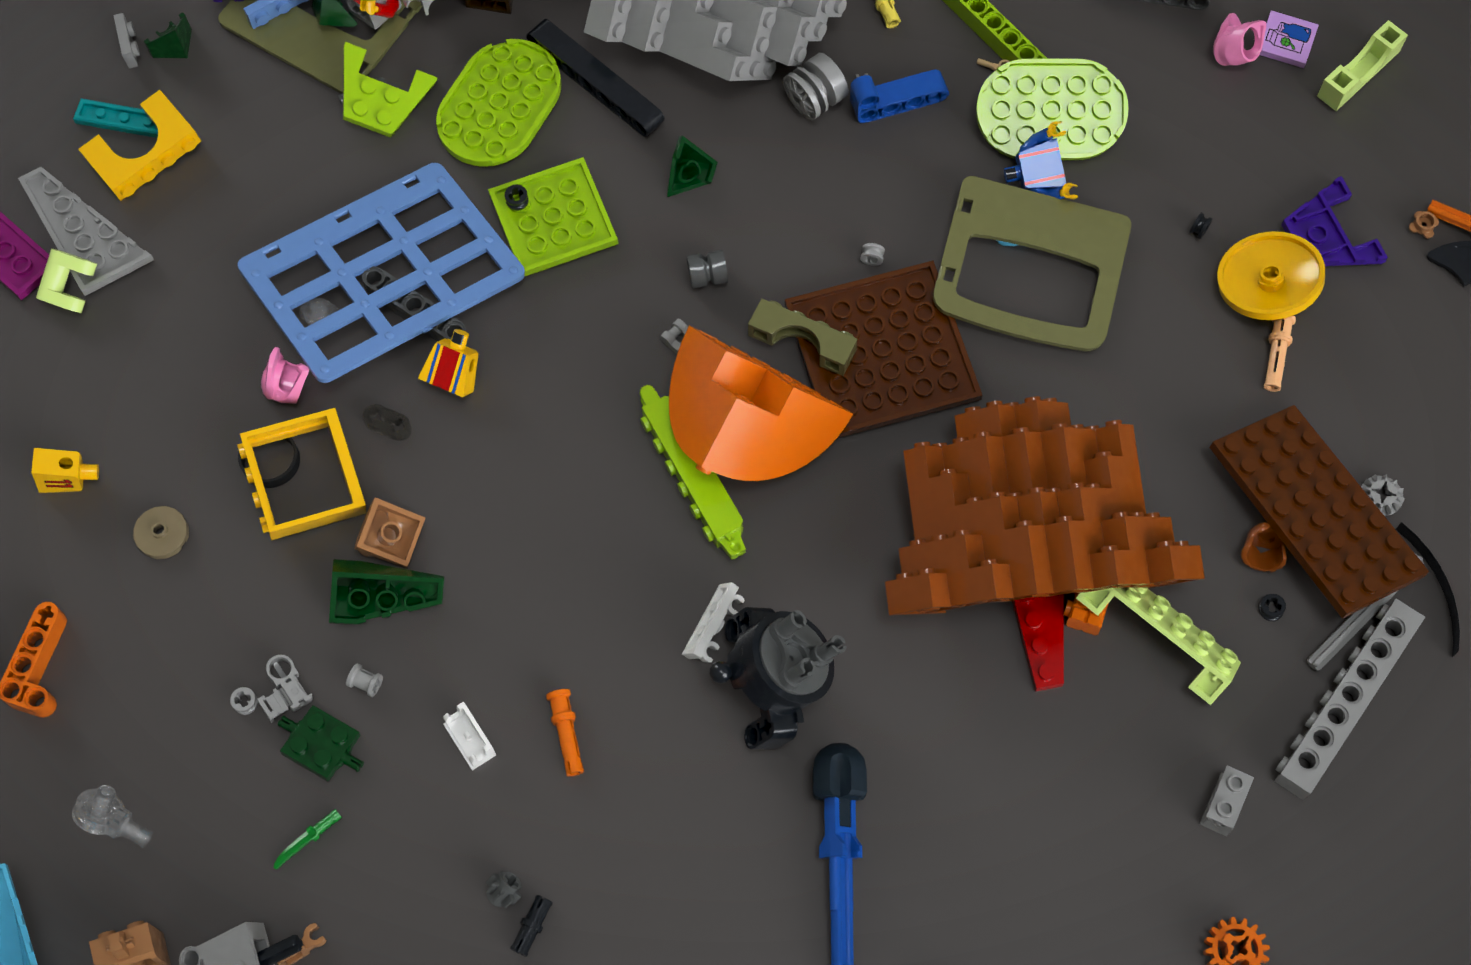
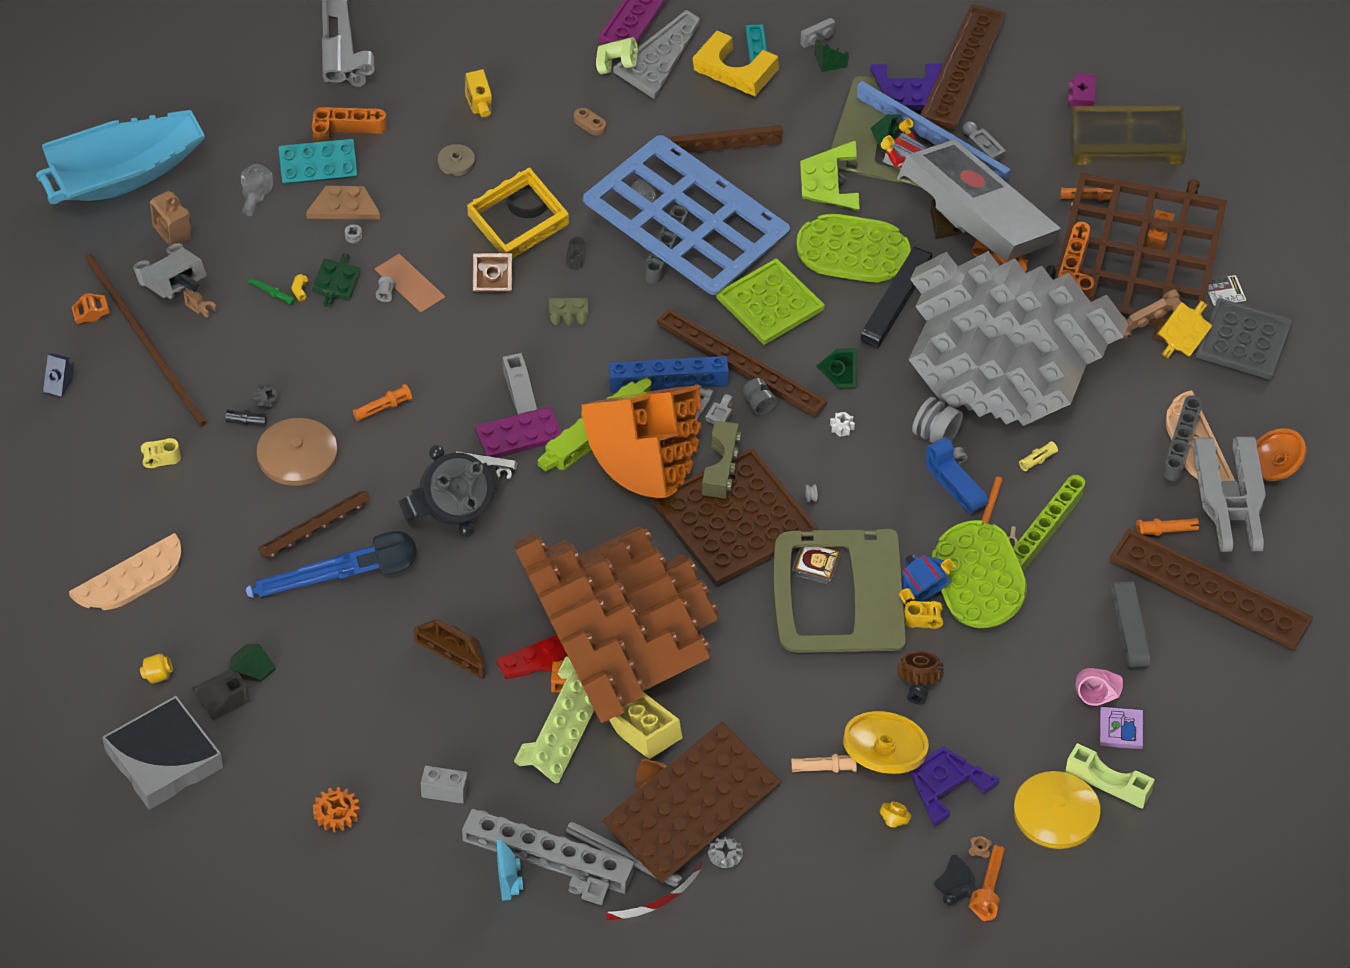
camera: 70 degrees right, 15 degrees down
(91, 717) = (317, 161): none -> teal bracket
(160, 347) = (589, 121): none -> medium nougat plate
(181, 701) = (343, 203): none -> medium nougat wing
(267, 184) = (729, 139): none -> reddish brown plate
(282, 379) = (582, 180): bright pink helmet -> none
(289, 693) = (368, 253): light grey piece -> none
(314, 800) = (298, 283): none -> yellow arm
(360, 644) = (410, 283): none -> nougat sticker
(375, 590) = (448, 274): dark green wedge -> none
(452, 365) = (626, 271): torso -> none
(468, 736) = (364, 354): white hinge -> none
(479, 457) = (568, 310): none -> olive plate
(511, 203) = (773, 277): black bush -> none
(596, 546) = (518, 383): none -> light grey slope
(611, 868) = (297, 451): none -> medium nougat dish
(636, 363) = (670, 373): none -> blue brick
(638, 277) = (742, 362): none -> reddish brown plate
(669, 570) = (518, 433): none -> magenta plate
(715, 321) = (720, 411): none -> light grey plate
(751, 873) = (320, 520): none -> reddish brown plate
(776, 190) = (842, 424): none -> white gear
(948, 78) = (992, 499): none -> orange bar
(979, 277) = (817, 563): none -> tile
(1006, 734) = (451, 645): none -> reddish brown wedge
(1088, 183) = (922, 614): none -> yellow piece
(1170, 210) = (920, 668): none -> reddish brown gear
(1203, 523) = (647, 726): none -> light yellow brick
(1264, 610) = (613, 795): black bush -> none
(1369, 295) = (895, 814): none -> yellow plate
(1380, 755) = (507, 869): none -> medium azure slope
(1385, 134) = (1056, 810): none -> yellow dish
(1415, 660) = (592, 890): none -> light grey plate

